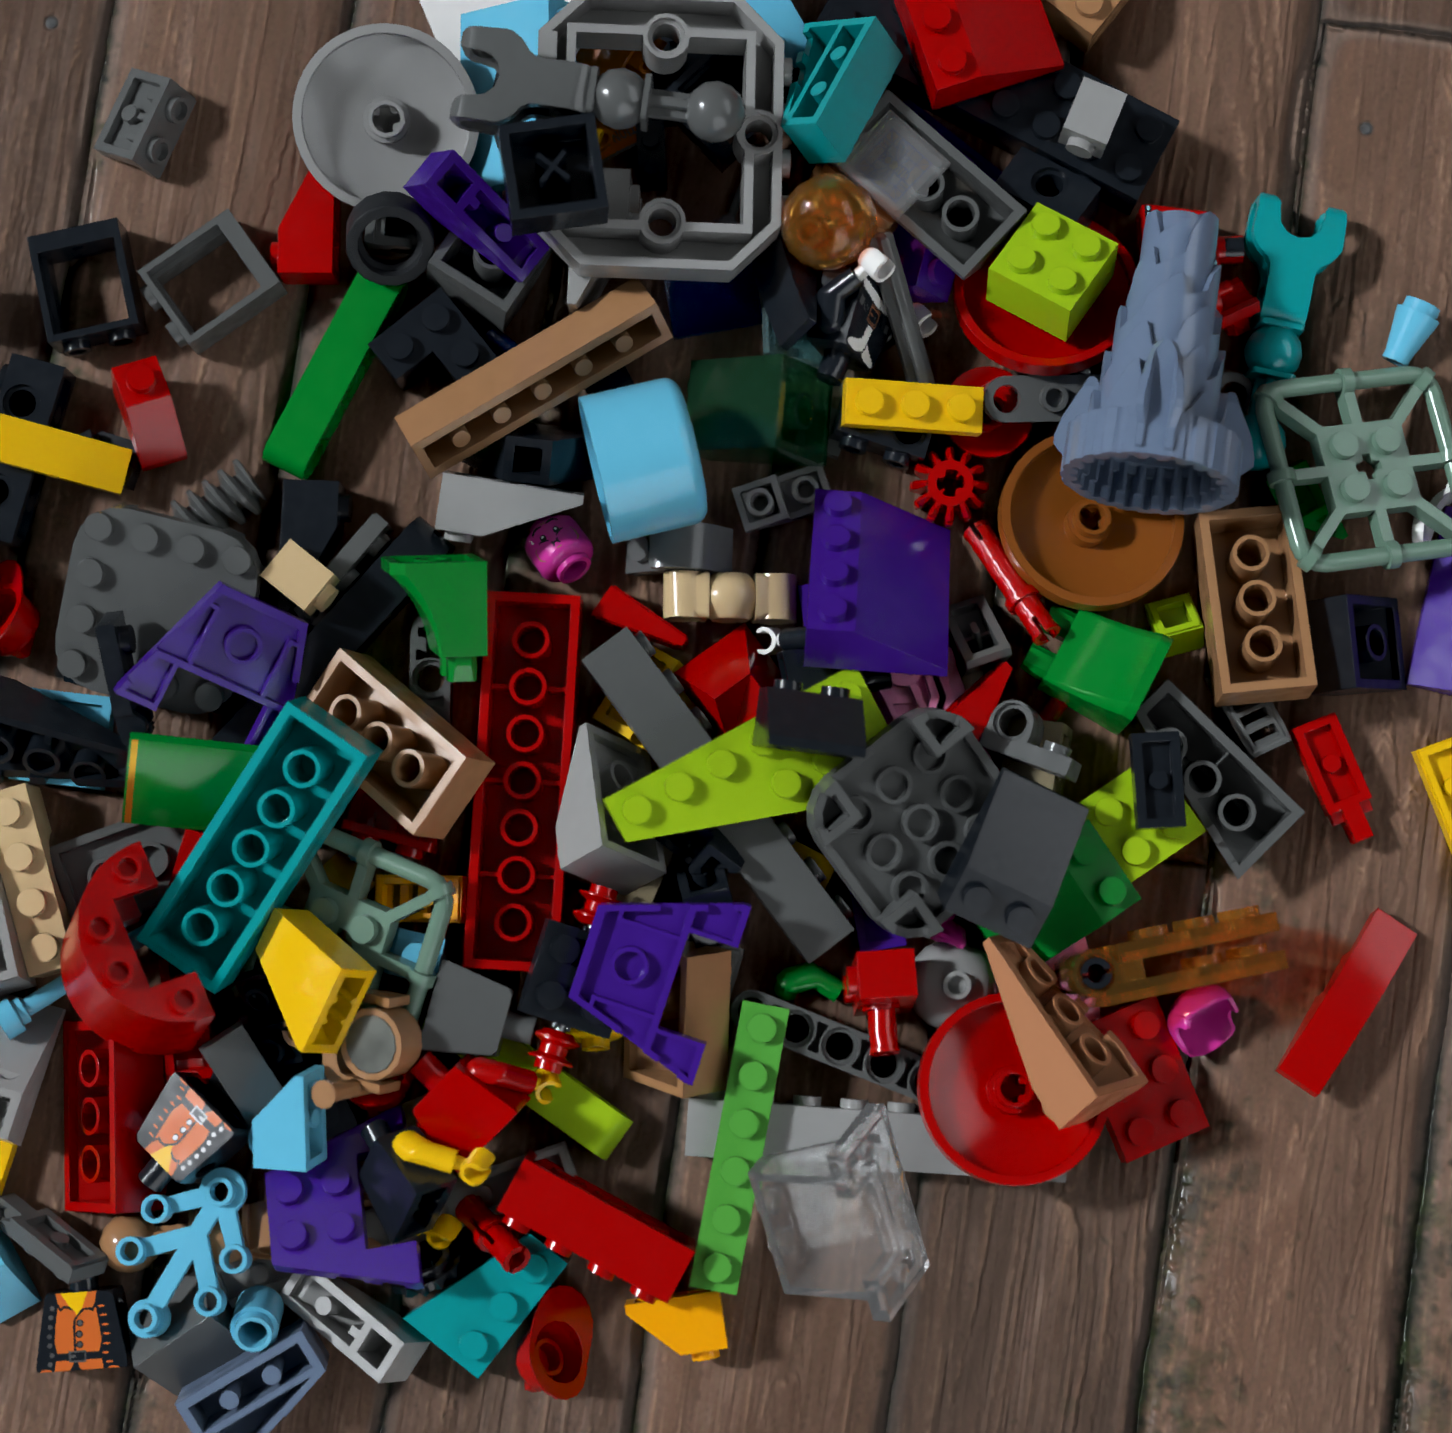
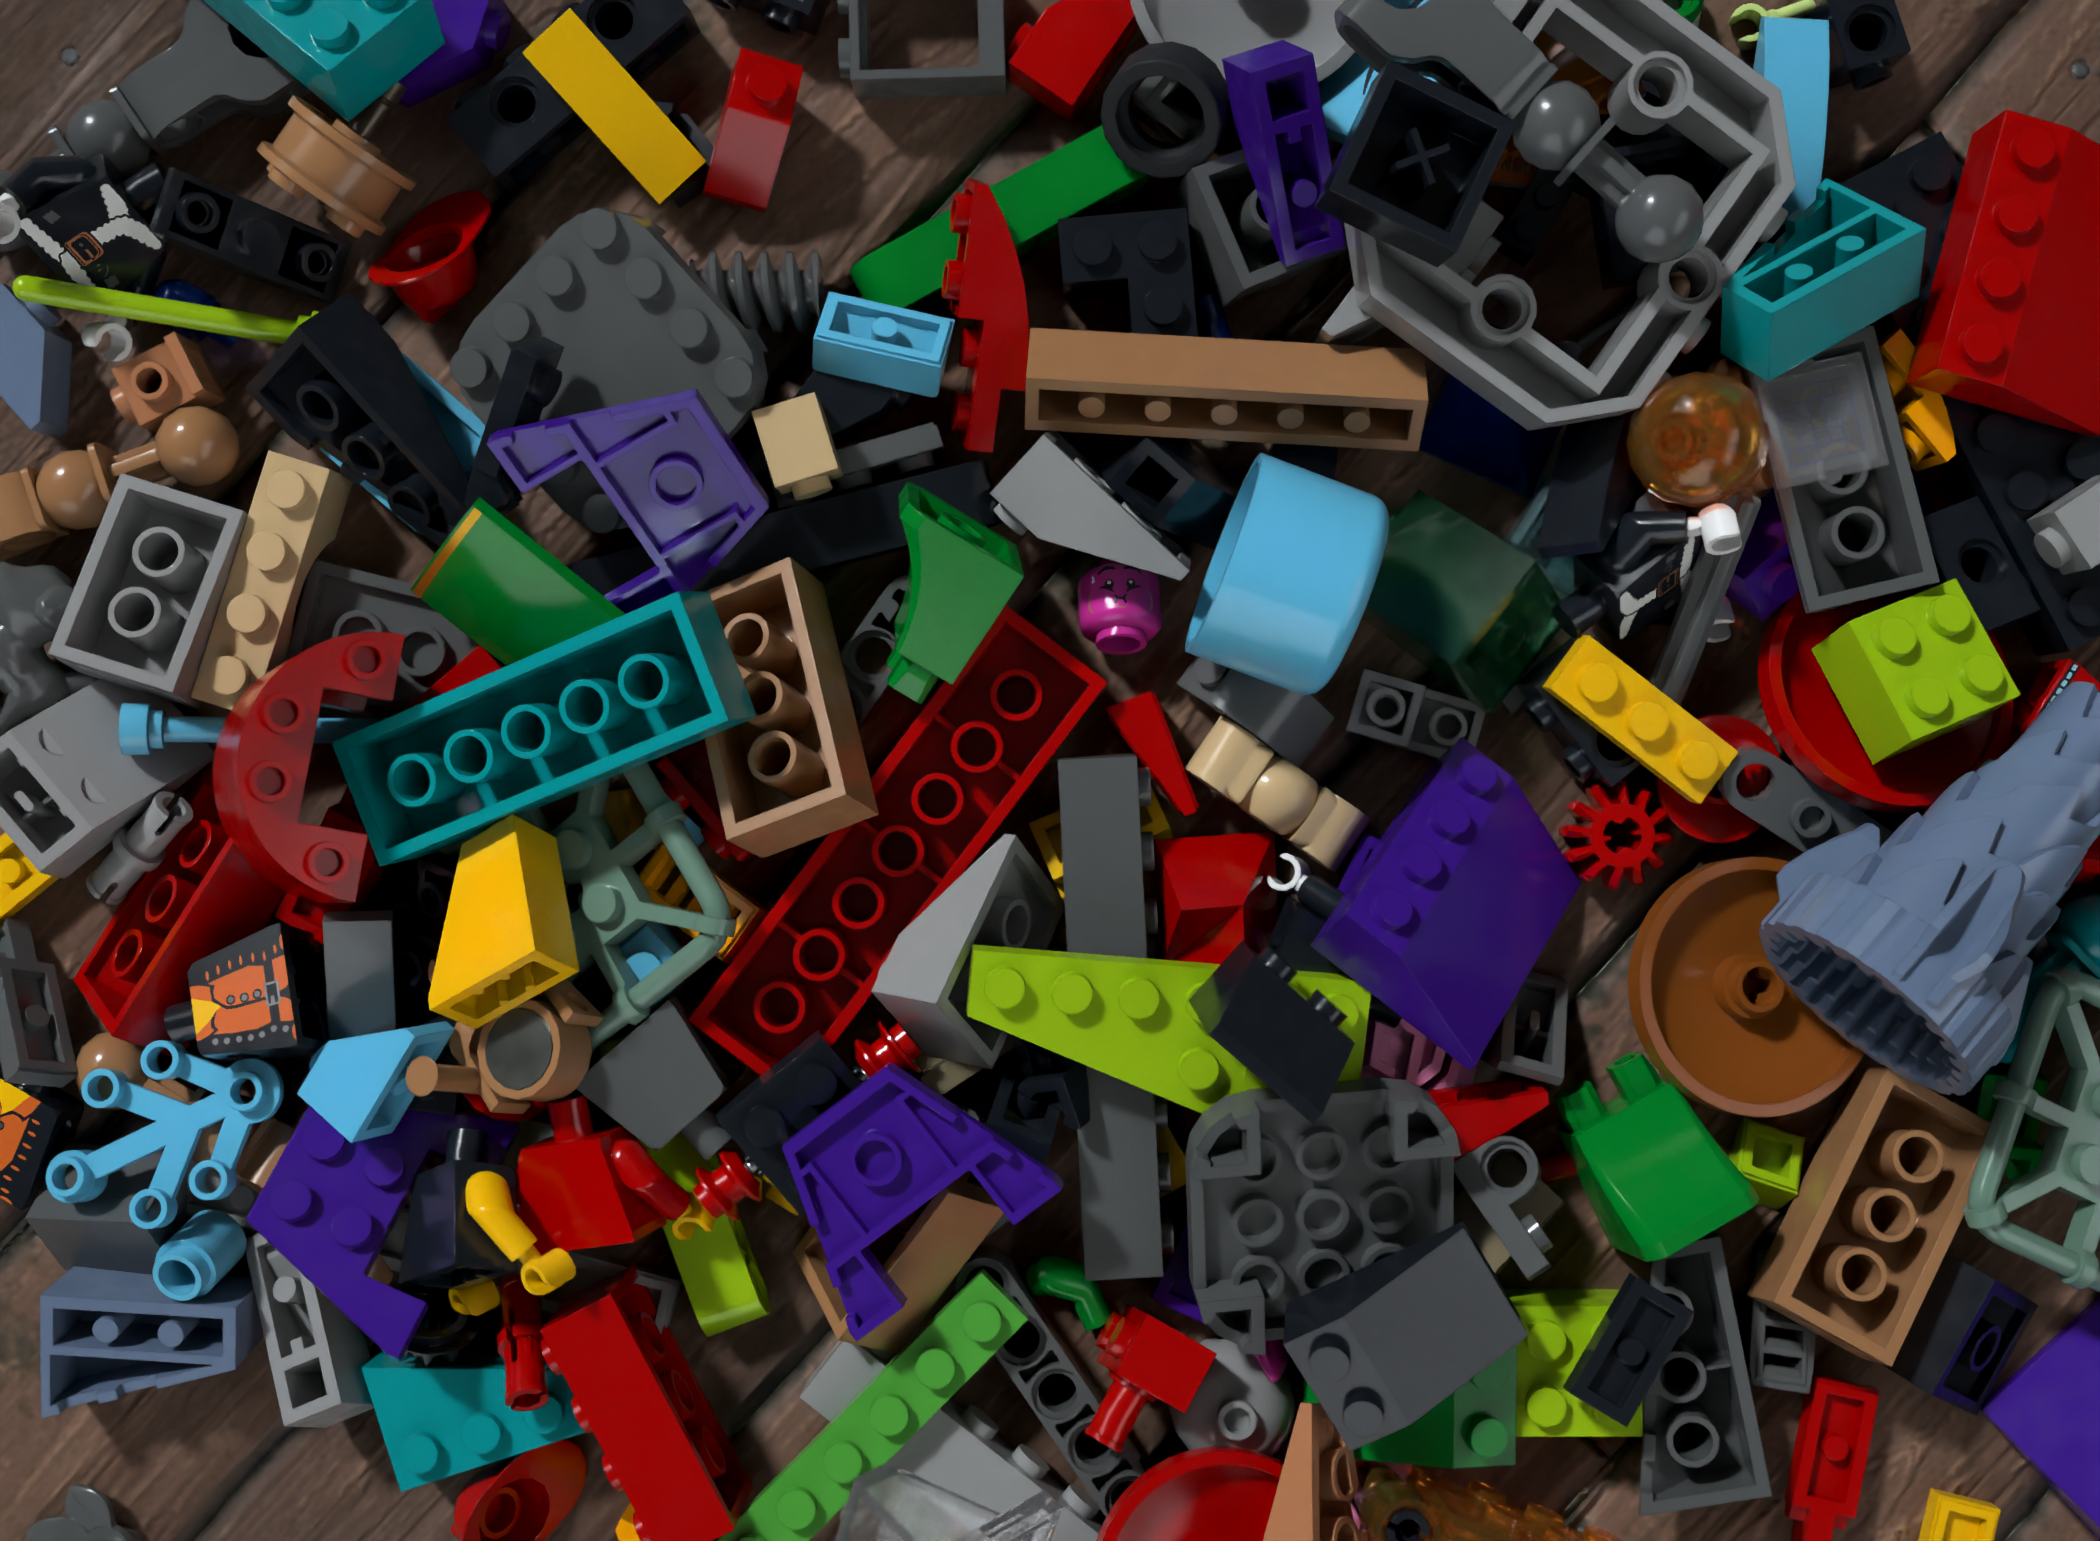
camera: 20 degrees right, 5 degrees up
(55, 1096) = (139, 847): none -> light grey pin
(312, 487) = (882, 344): none -> medium azure slope
(354, 410) = (989, 288): none -> red slope
(956, 122) = (1919, 411): none -> light orange slope
(1021, 598) = (1612, 1019): red pin -> none

